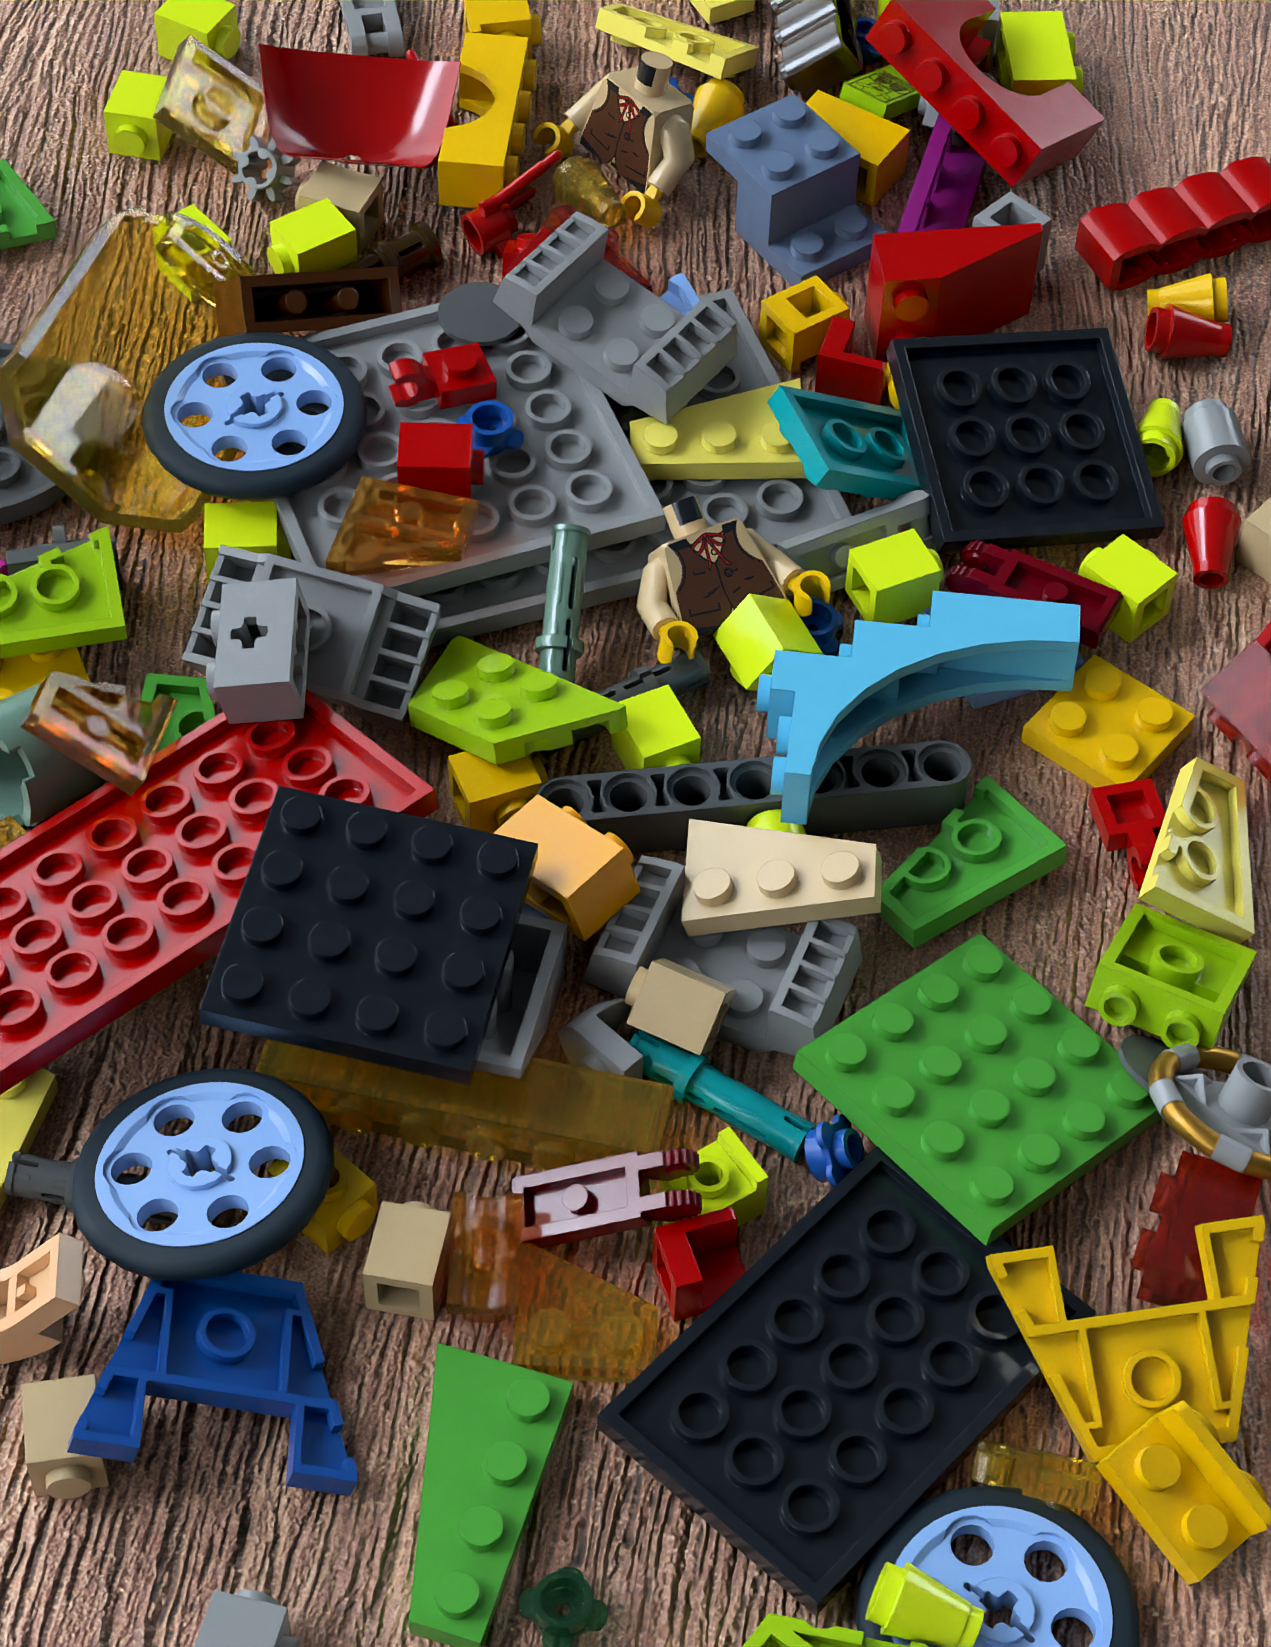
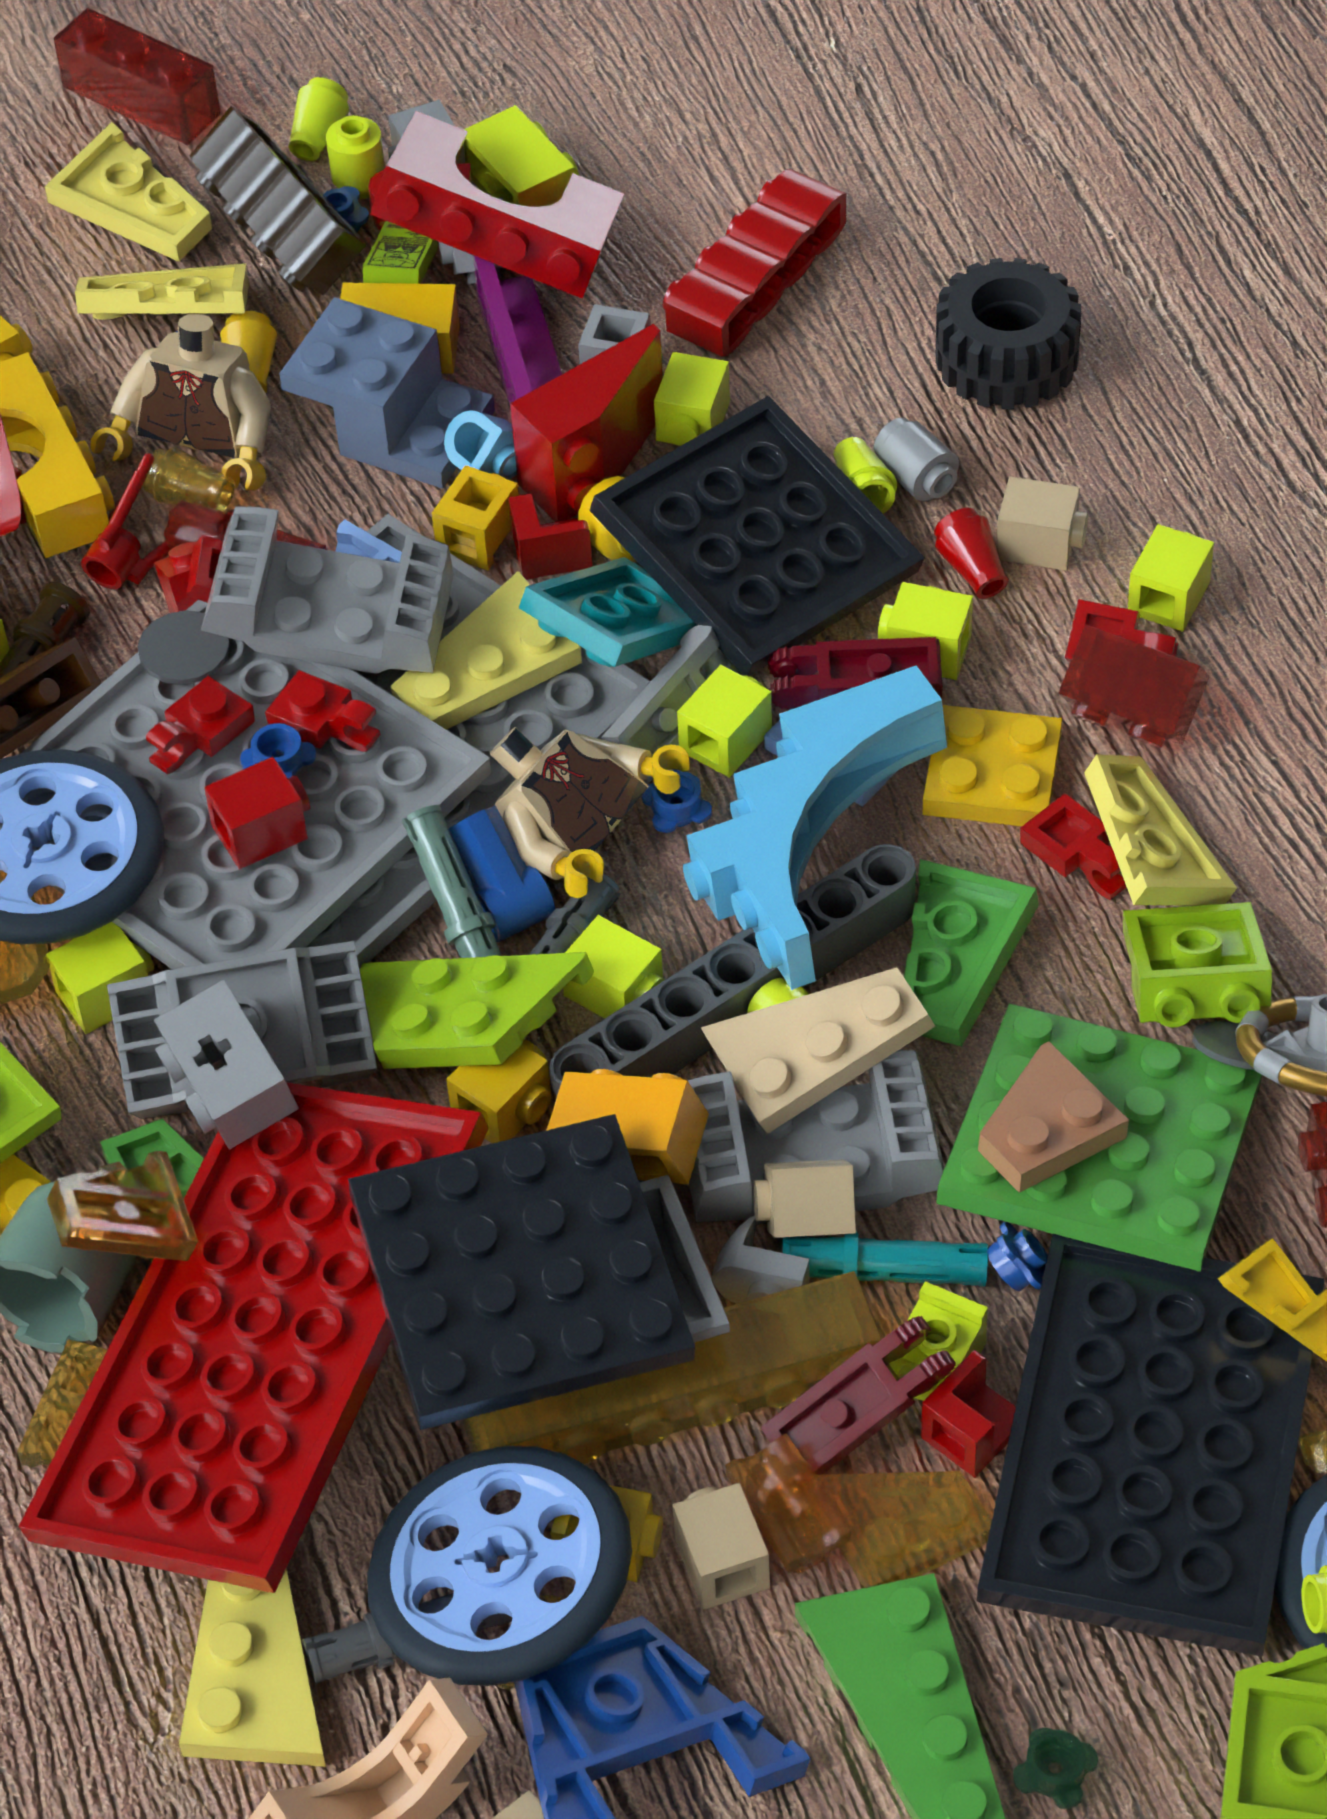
camera: 25 degrees left, 0 degrees up
(400, 529) = (264, 887): clear orange wing -> none
(550, 410) = (322, 711): none -> red plate
(614, 625) = (500, 878): none -> blue piece
(754, 634) = (651, 834): neon yellow brick -> none
(844, 267) = (481, 443): none -> medium azure plate
(929, 1045) = (1049, 1122): none -> nougat wing
(1052, 302) = (691, 397): none -> neon yellow brick
(1184, 334) = (820, 369): red cone -> none
(1199, 295) = (808, 336): yellow cone -> none

